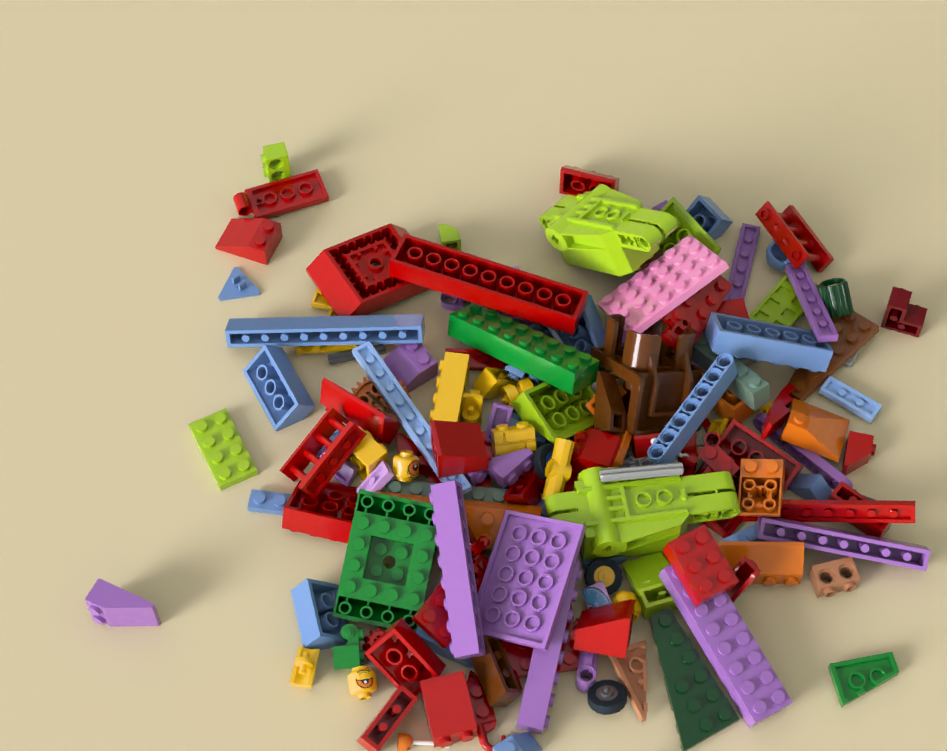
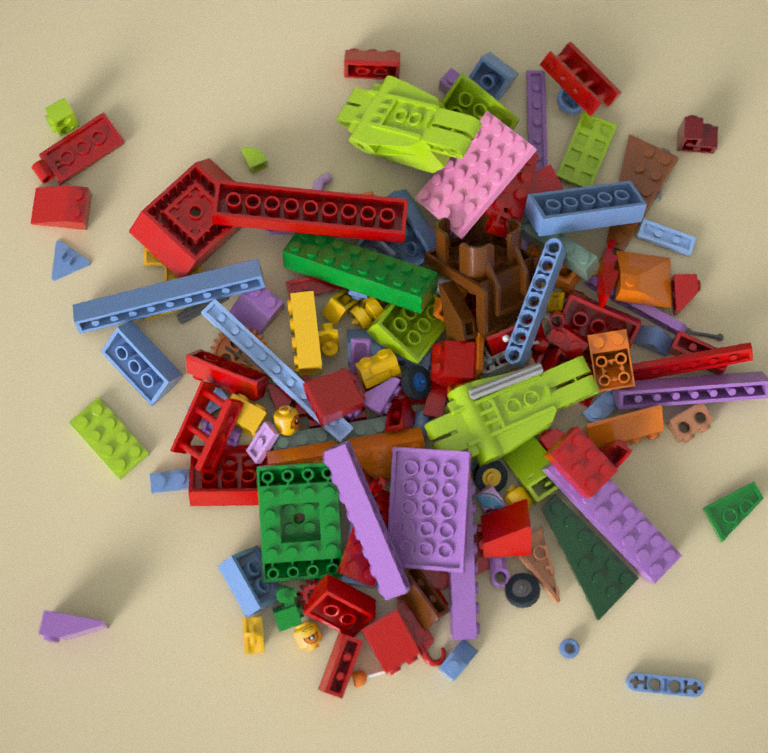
camera: 20 degrees left, 20 degrees up
(558, 467) = (427, 392): yellow piece -> none
(811, 303) = (614, 153): medium lavender plate -> none
(836, 297) = (634, 146): dark green piece -> none

